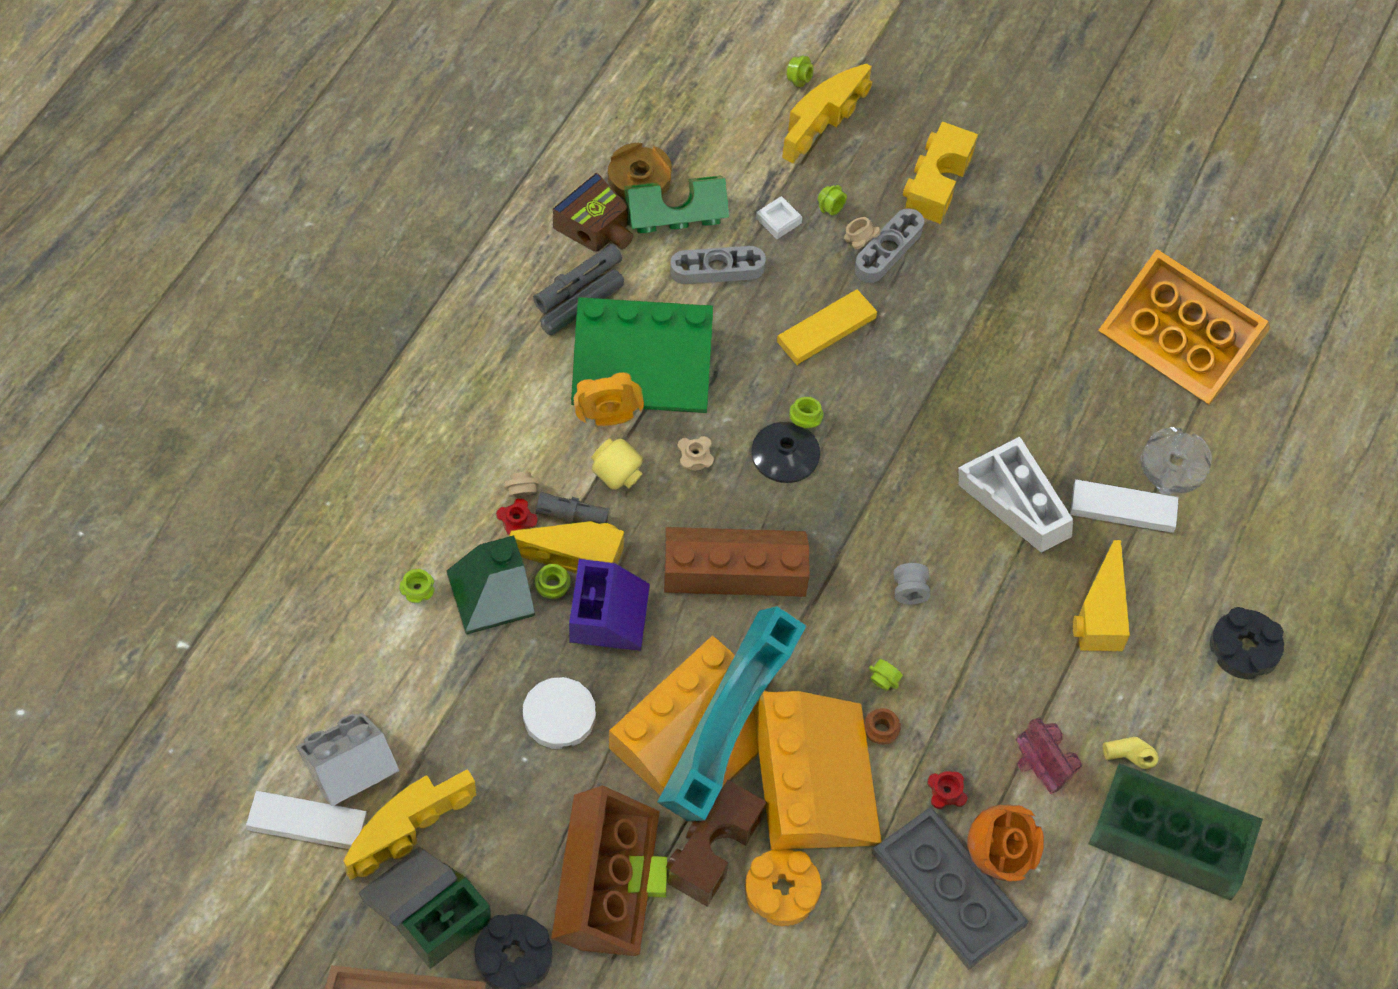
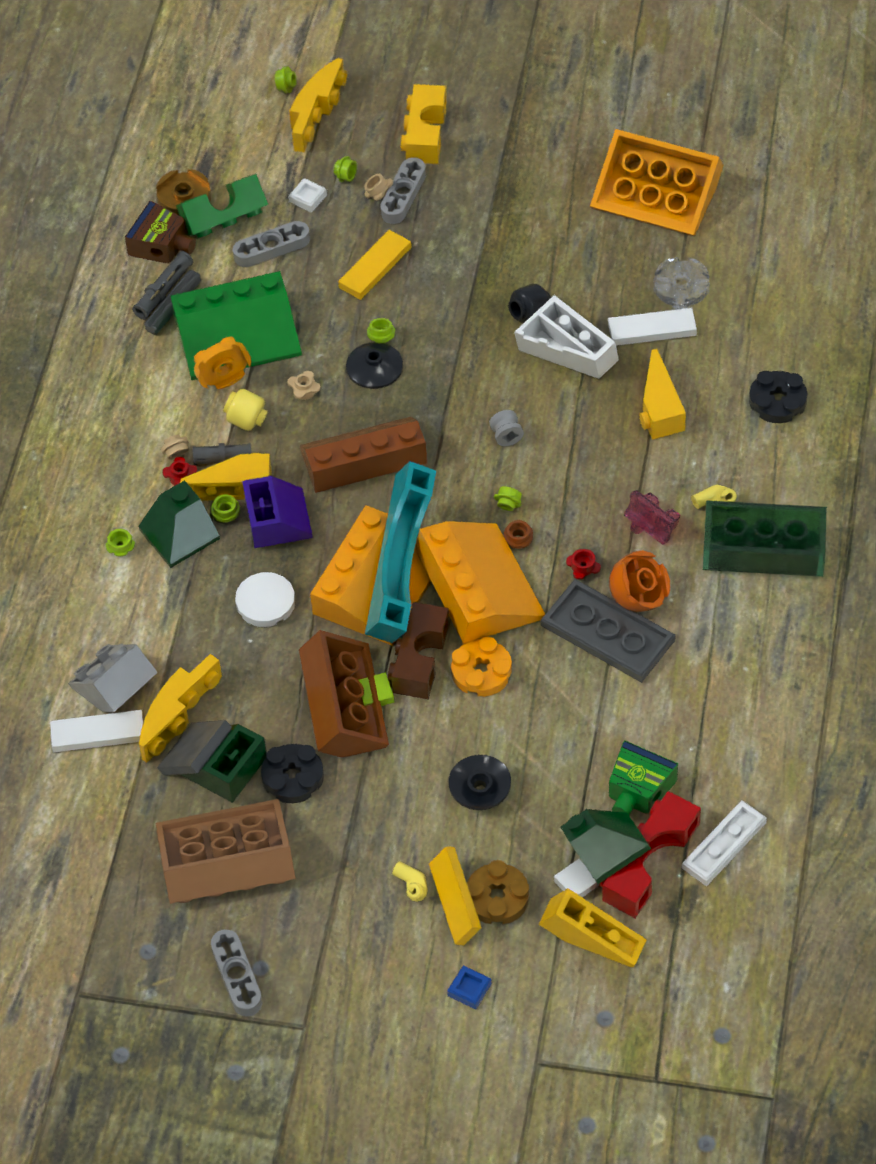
camera: 10 degrees left, 5 degrees down
(988, 431) = (527, 301): none -> black head

